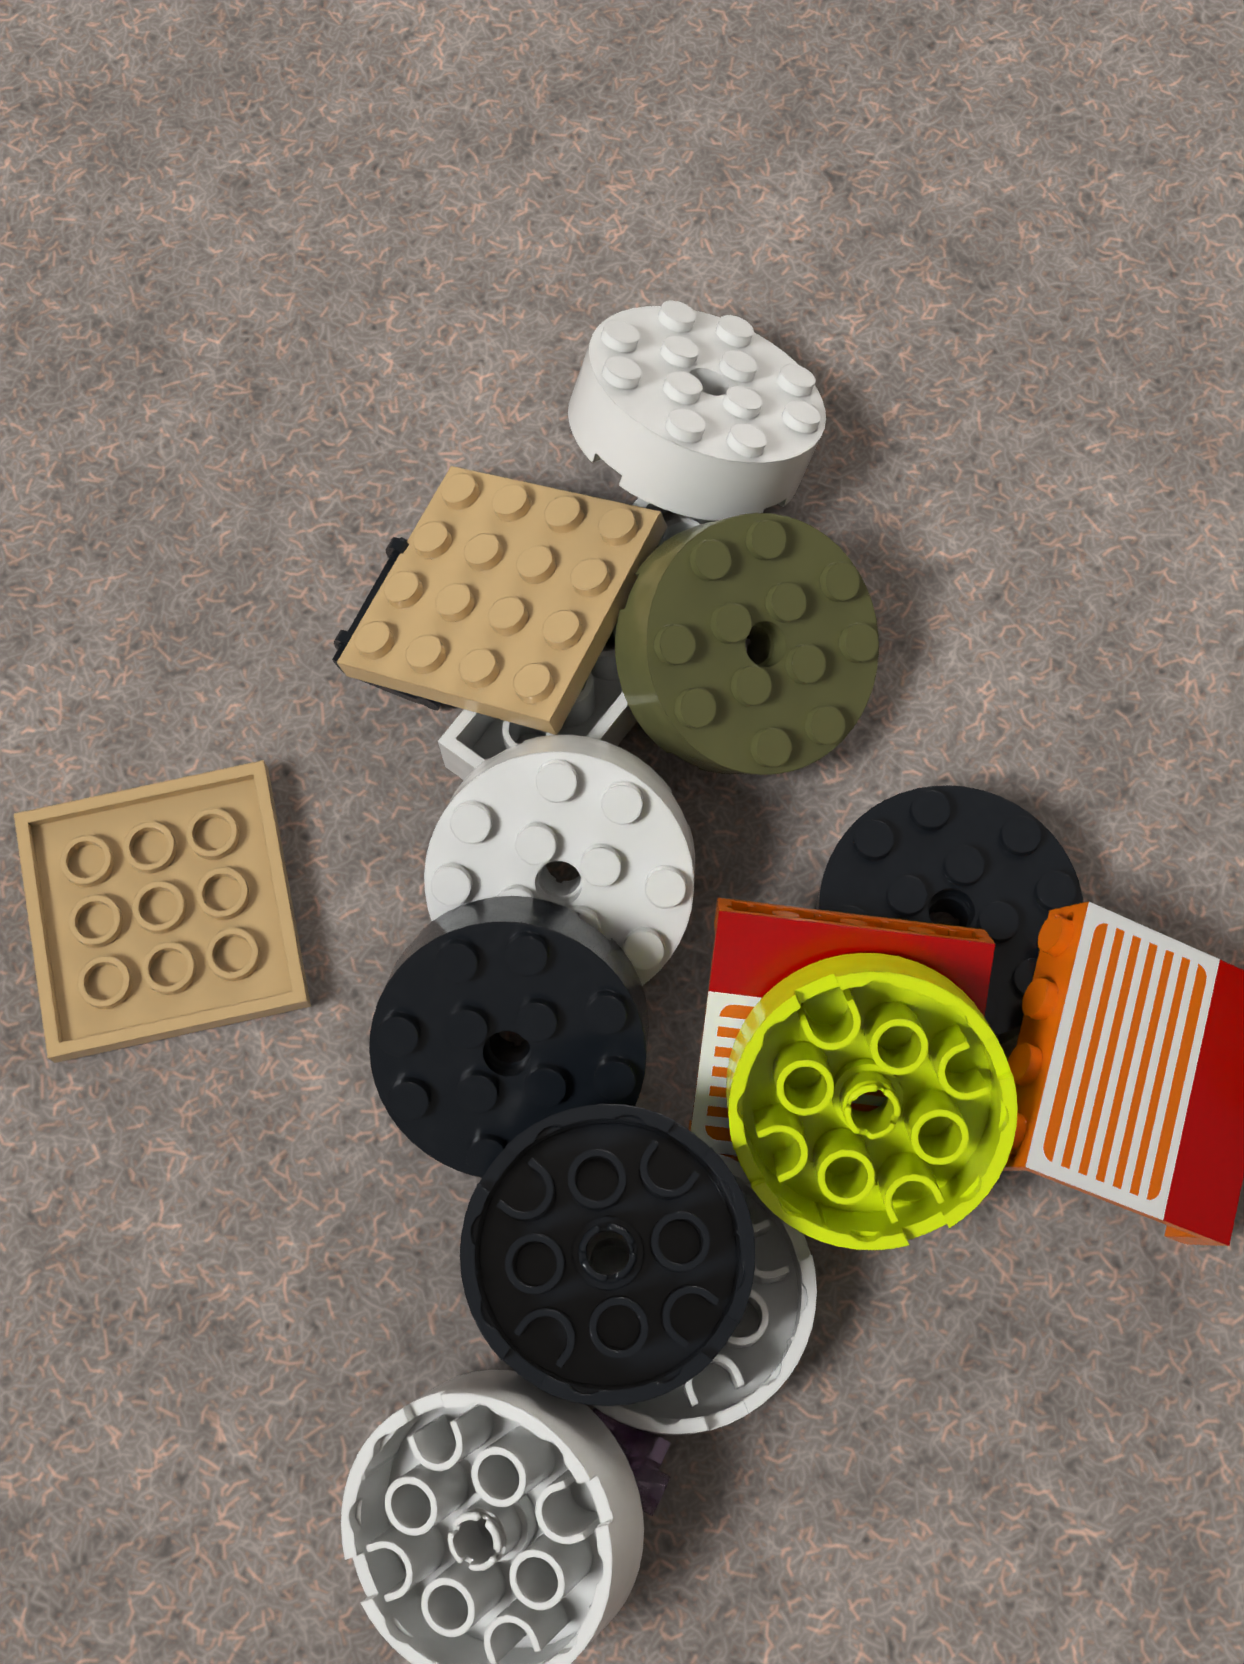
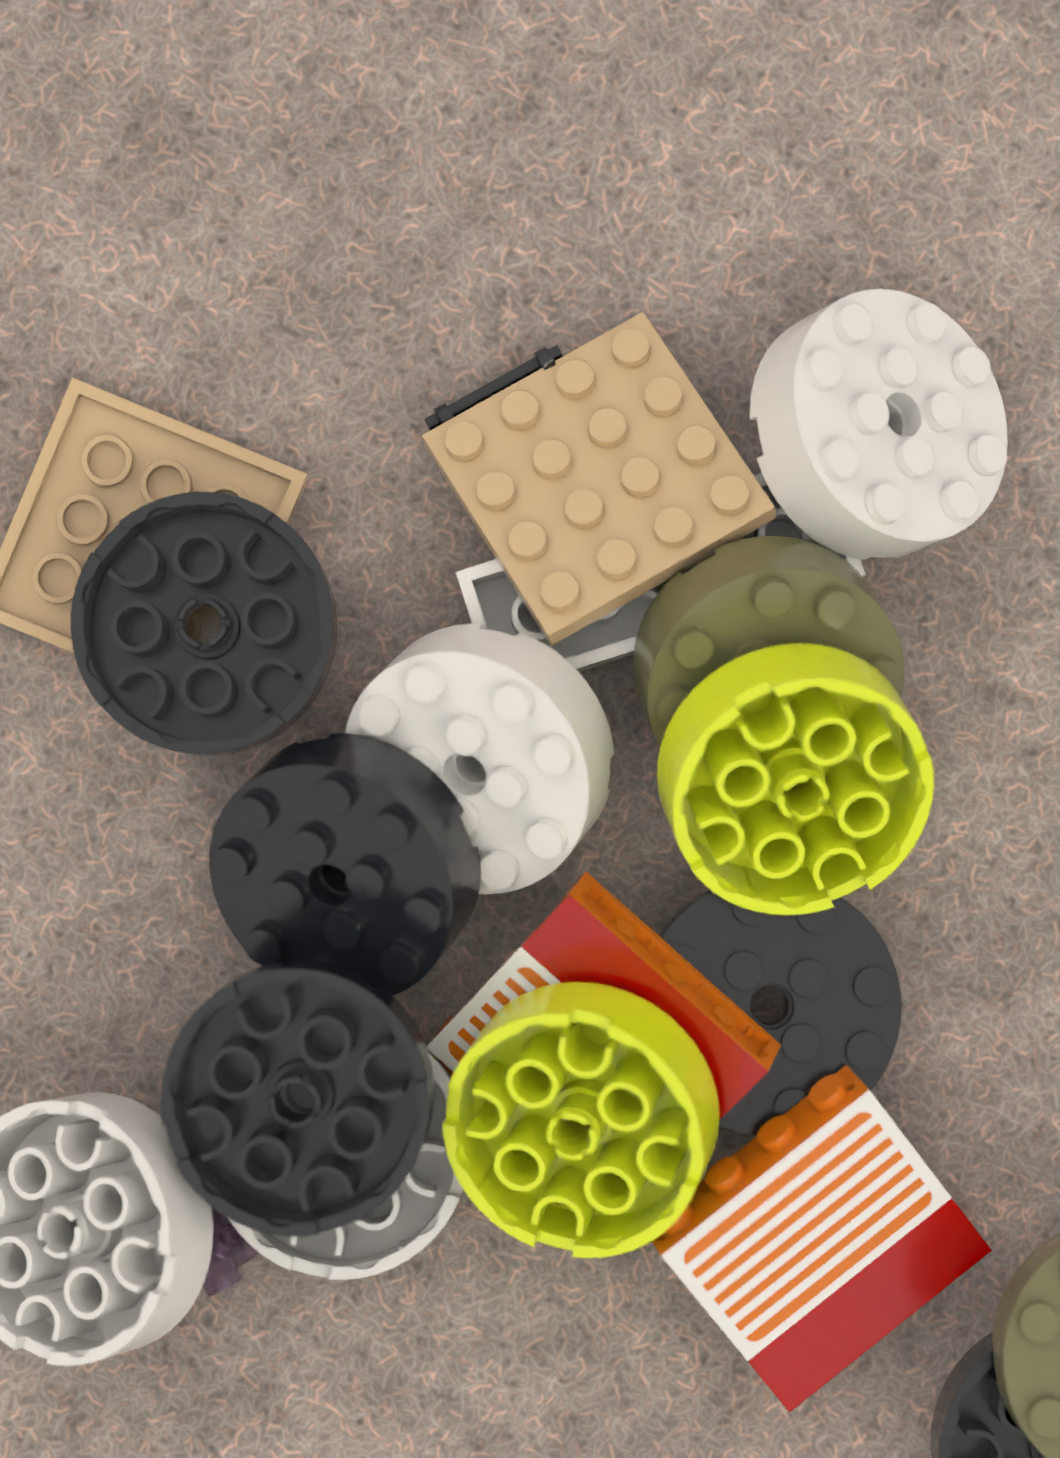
camera: 30 degrees right, 15 degrees up
(263, 988) = (136, 610): none -> black brick
(822, 637) = (794, 778): none -> neon yellow brick

